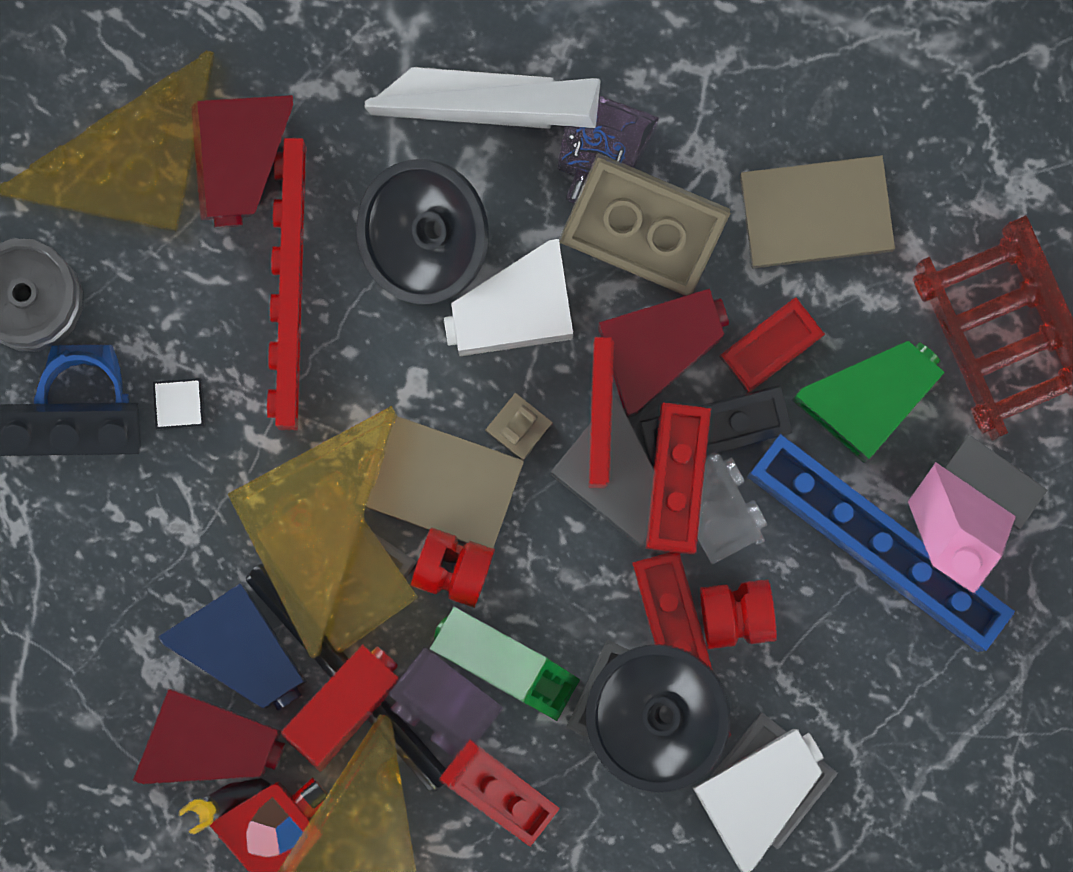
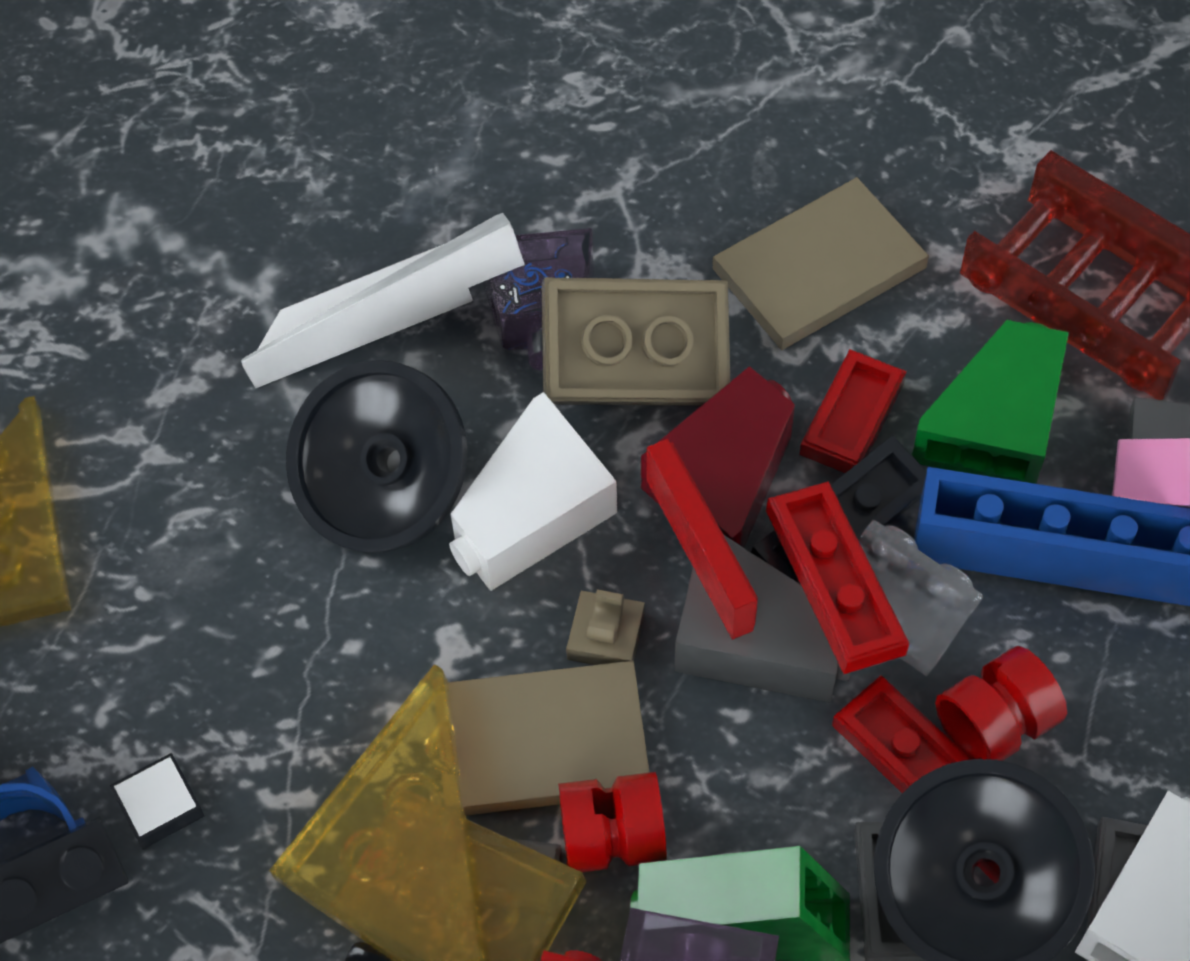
camera: 20 degrees left, 25 degrees down
(235, 153) = (104, 477): dark red slope -> none
(287, 305) = (246, 619): red plate -> none

